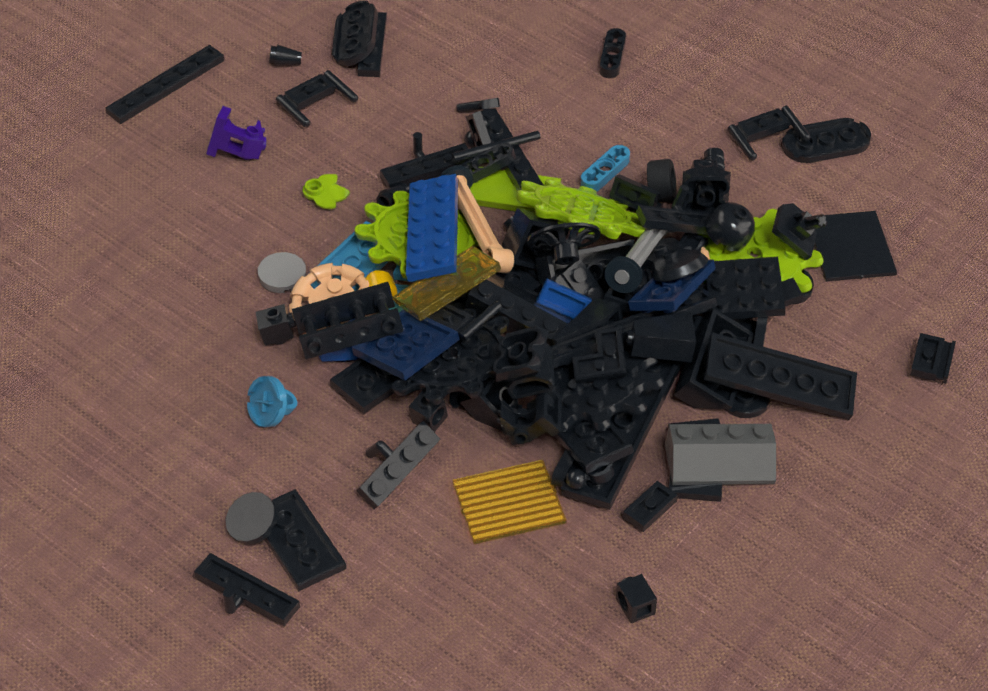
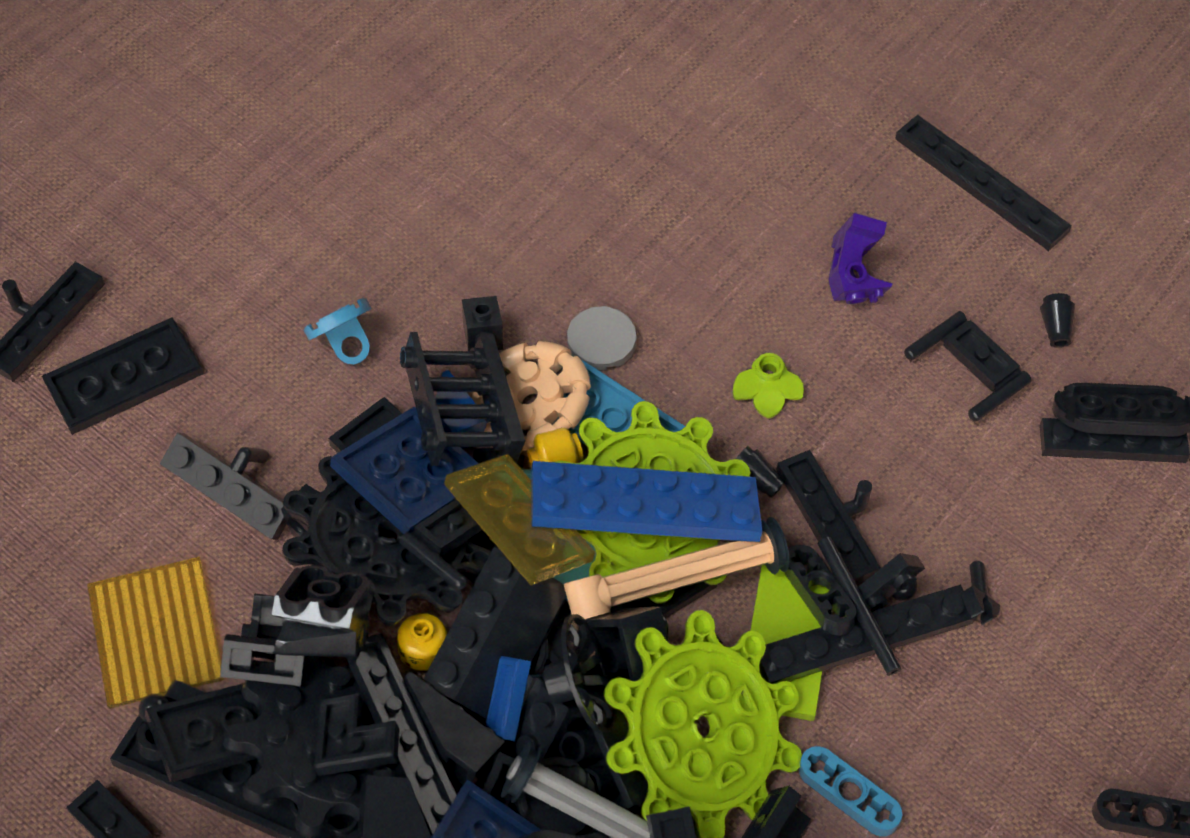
camera: 90 degrees right, 10 degrees up
(251, 518) = (150, 317): black tile -> none

